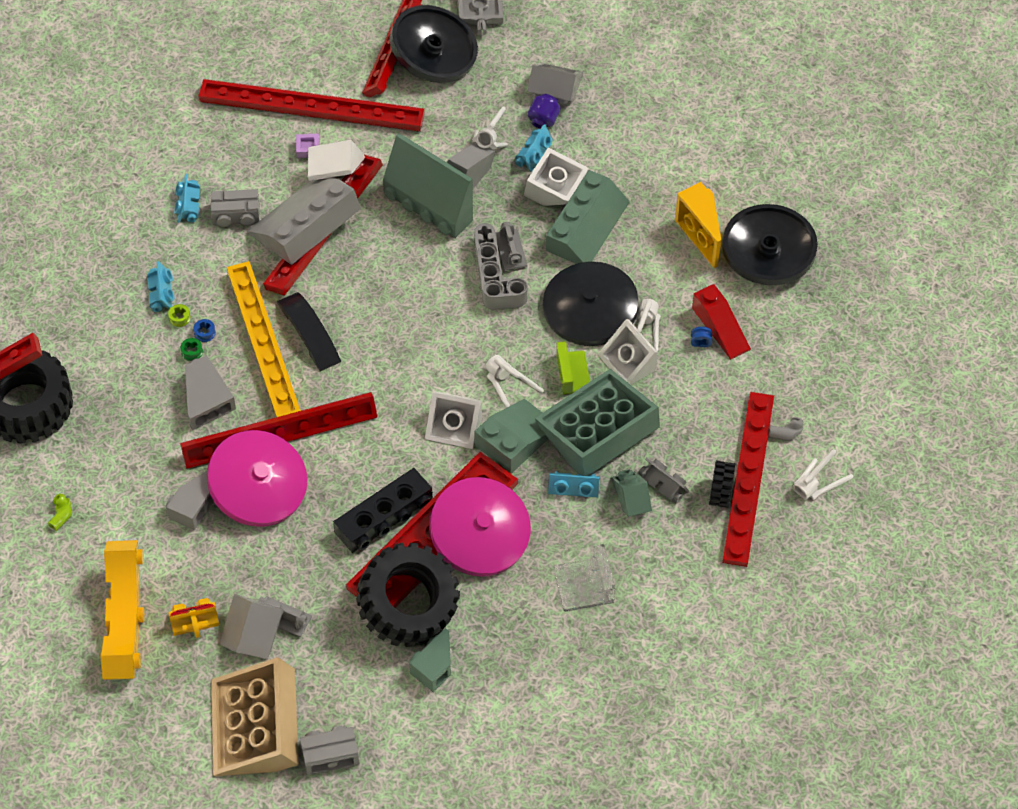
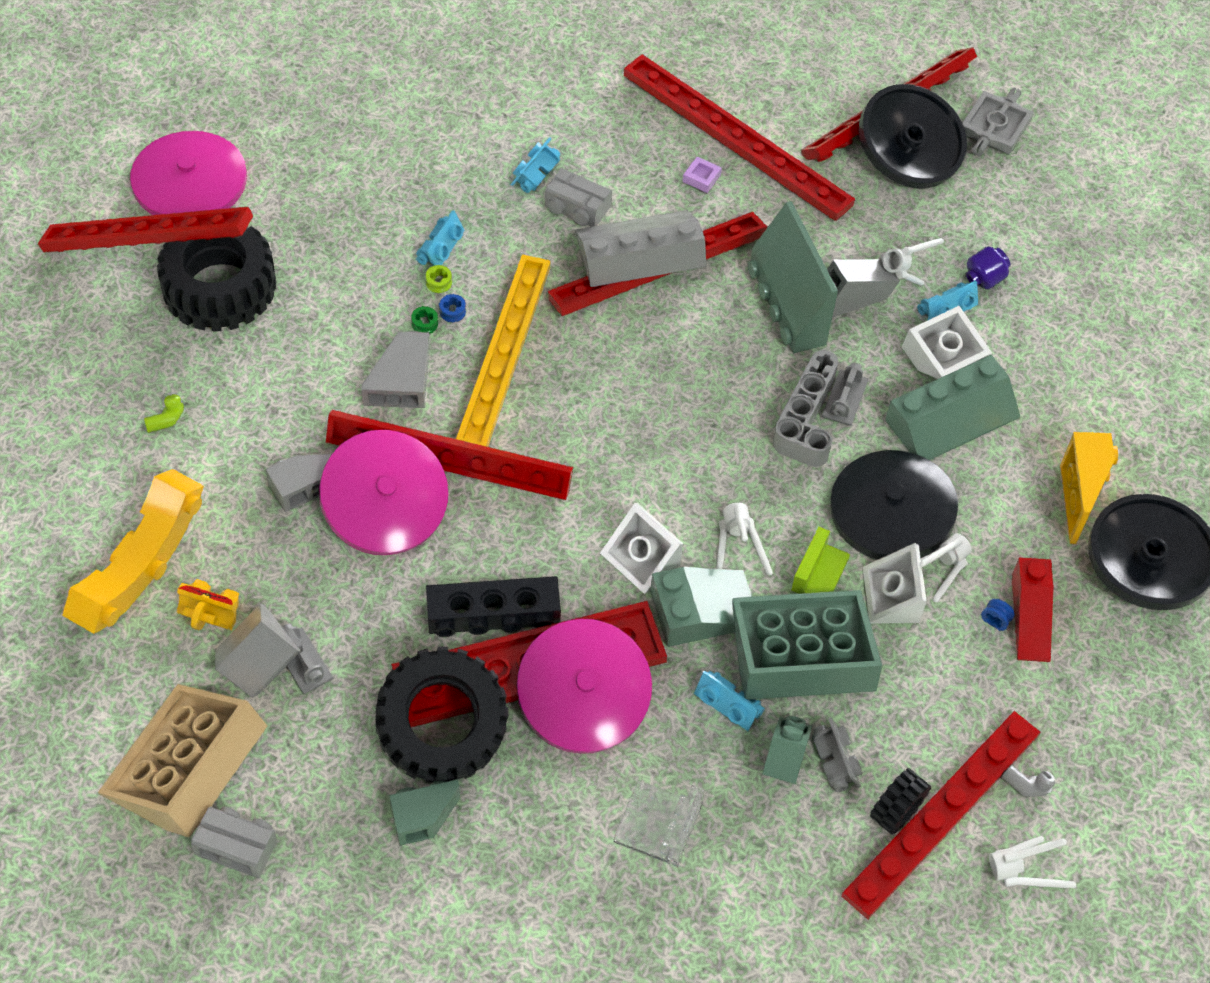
camera: 30 degrees right, 0 degrees up
(310, 330) = (560, 368): black slope -> none
(333, 159) = (712, 199): white slope -> none
(555, 81) = (1022, 242): light grey slope -> none

